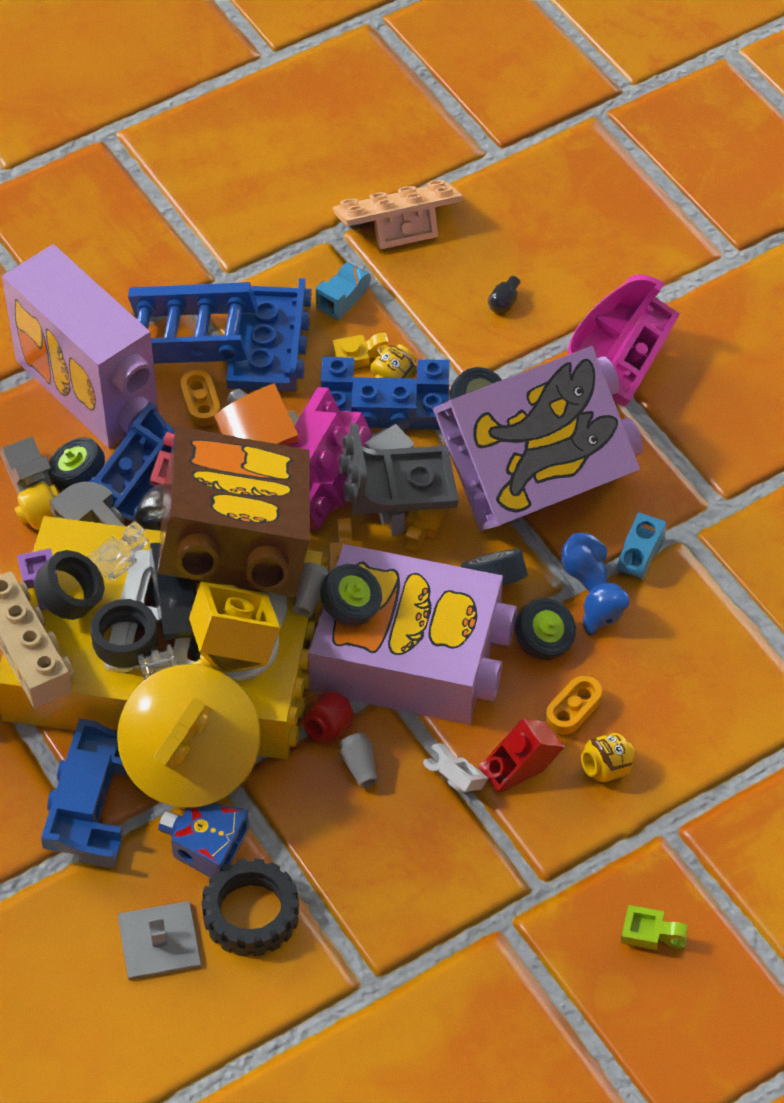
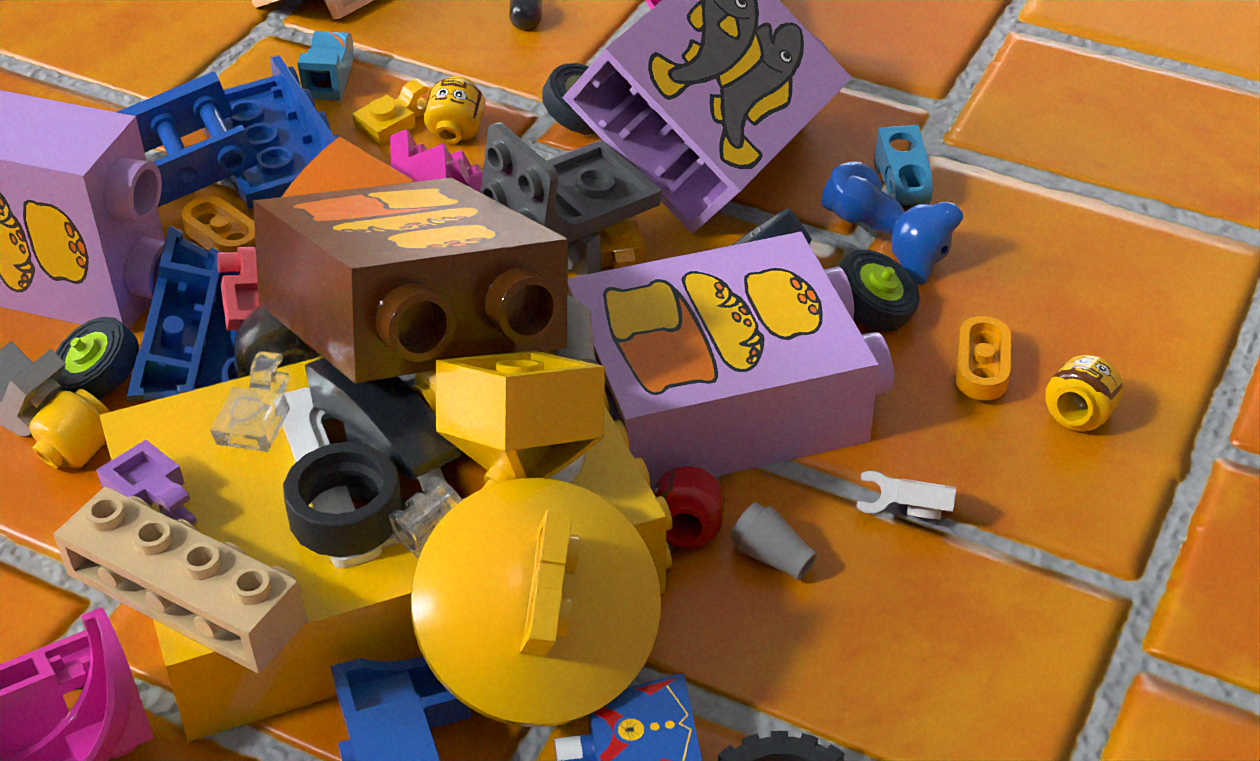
camera: 30 degrees left, 10 degrees down
(83, 571) = (188, 462): black tyre -> none
(86, 503) = (149, 375): light grey brick -> none
(351, 594) = (636, 318): black wheel -> none
(389, 400) = (507, 100): blue bracket -> none
(521, 754) = (977, 439): red slope -> none

